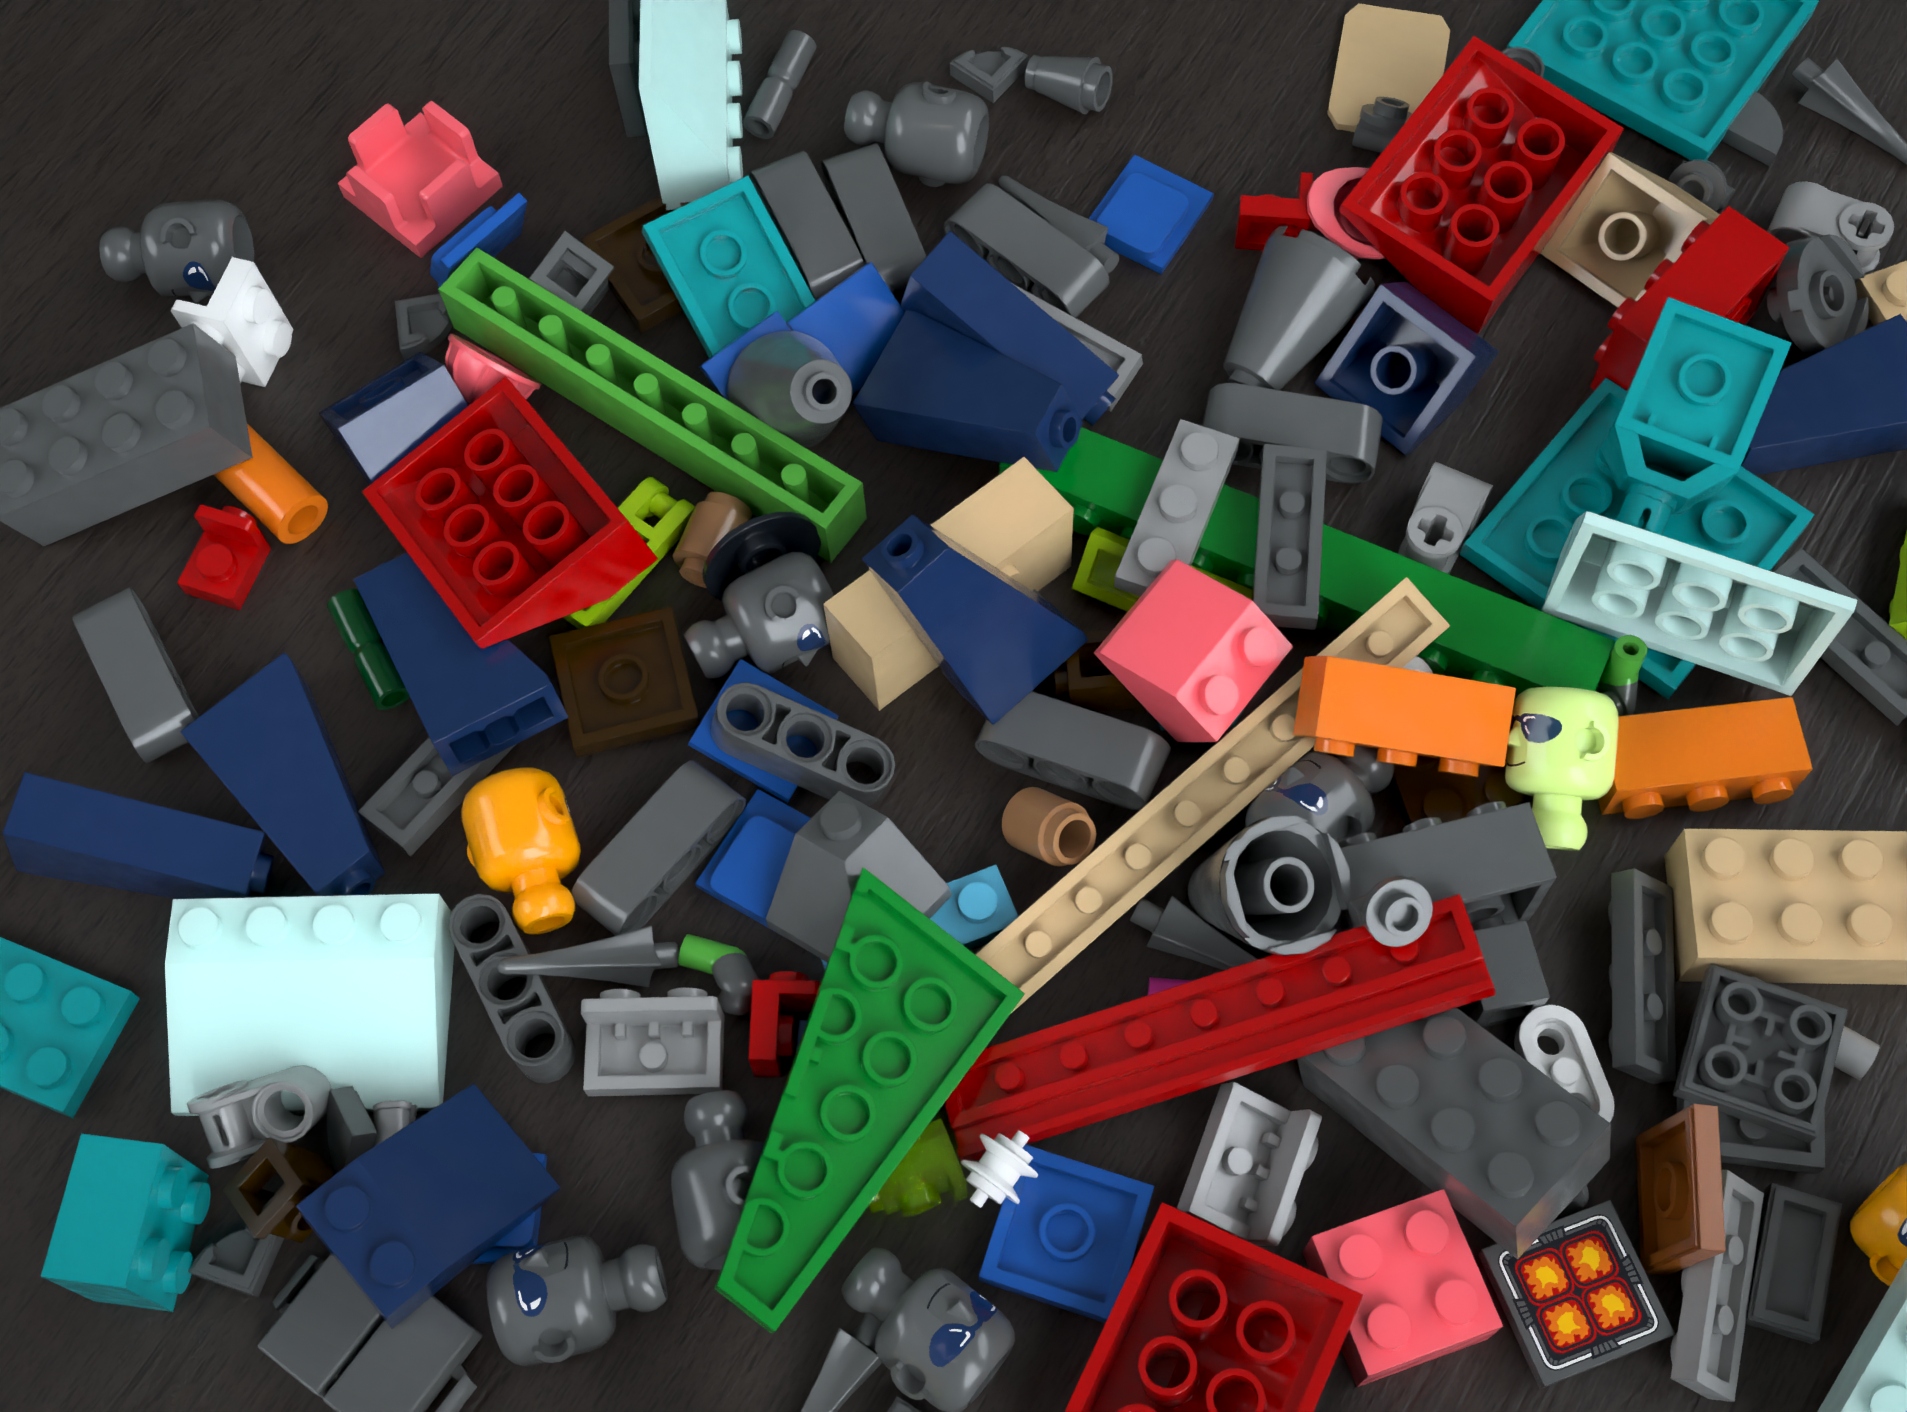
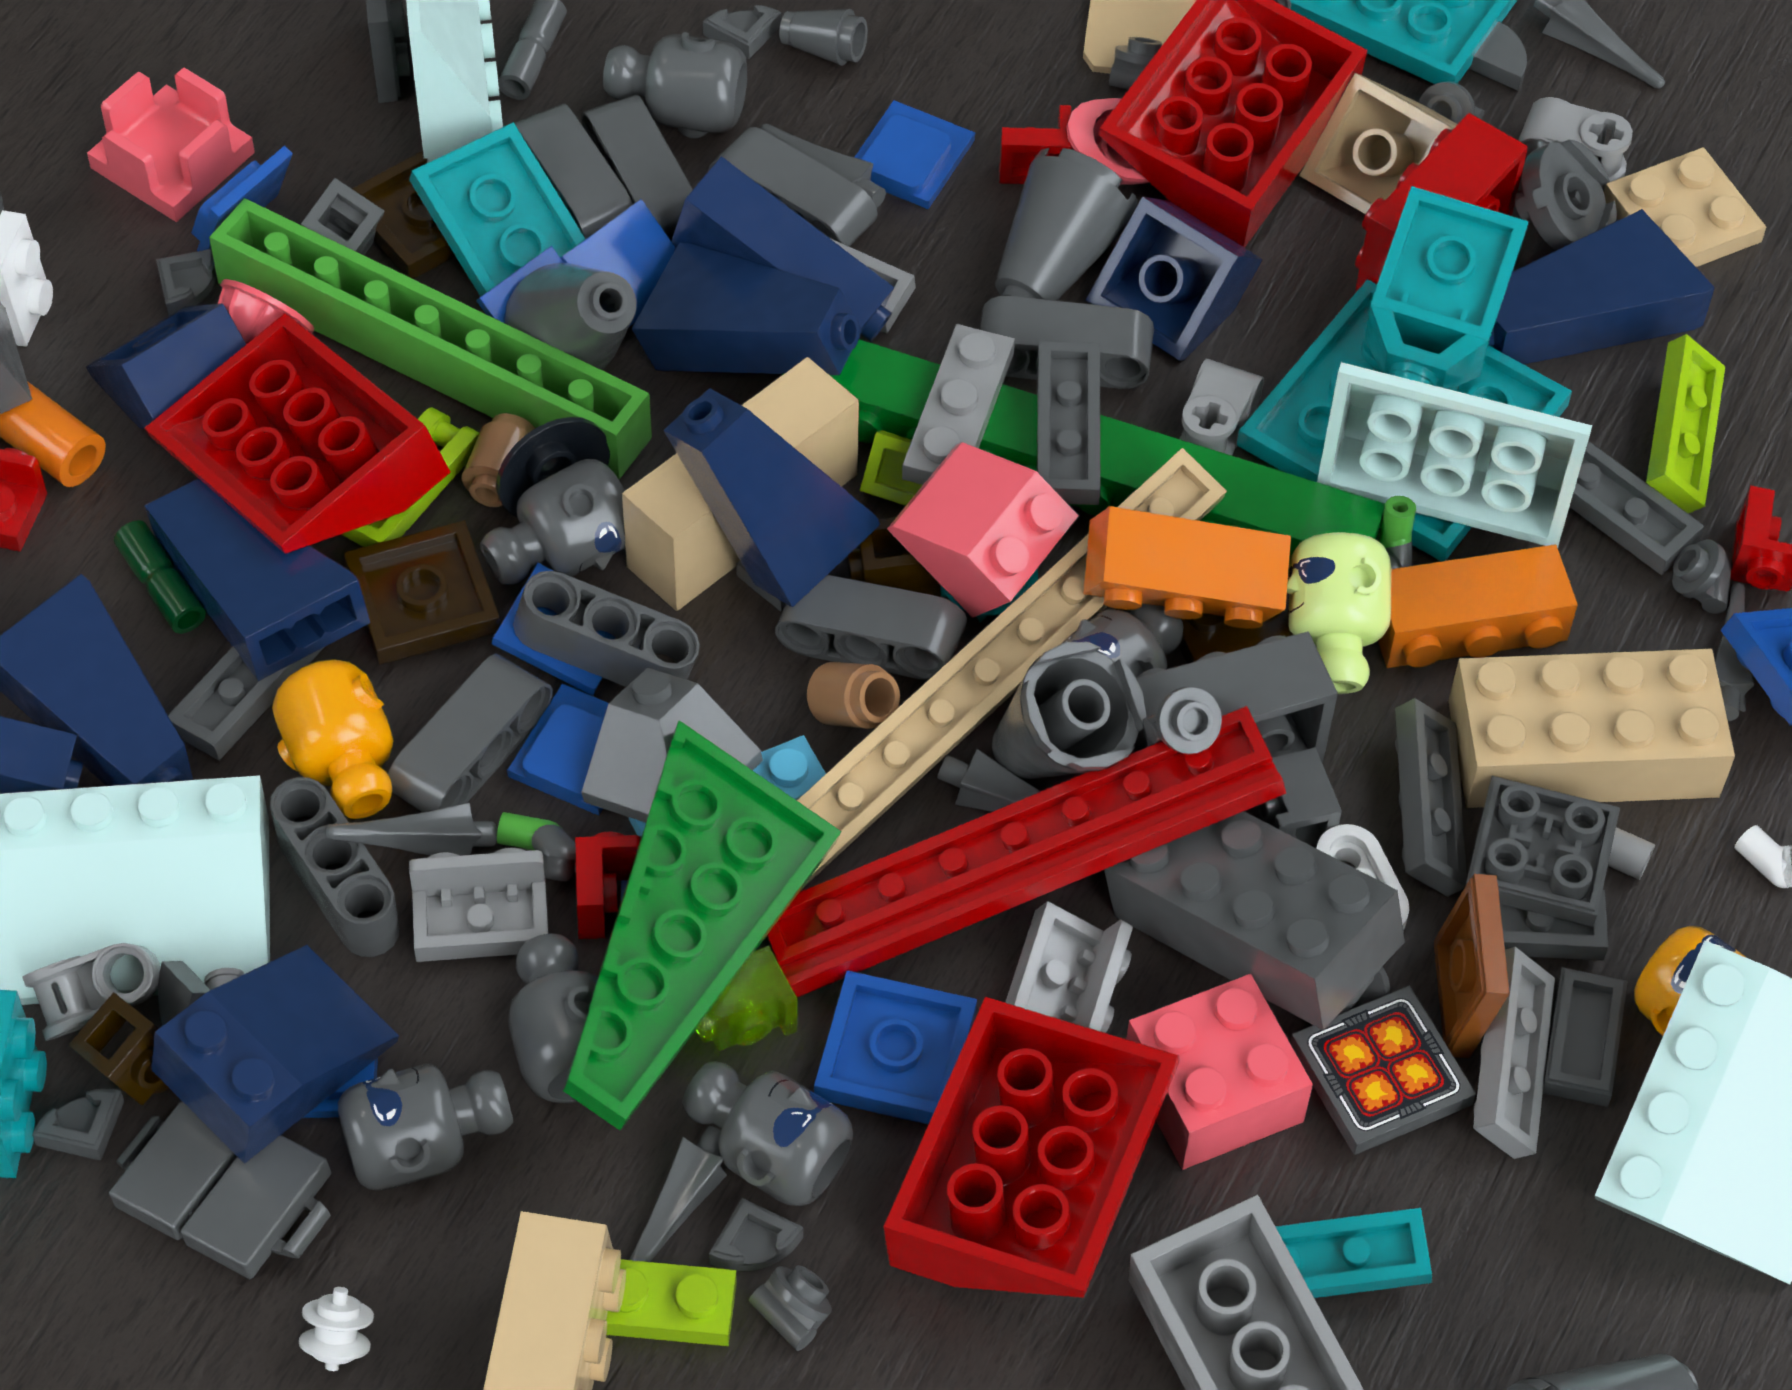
camera: 10 degrees left, 10 degrees down
(999, 1168) = (828, 983): white wheel -> none

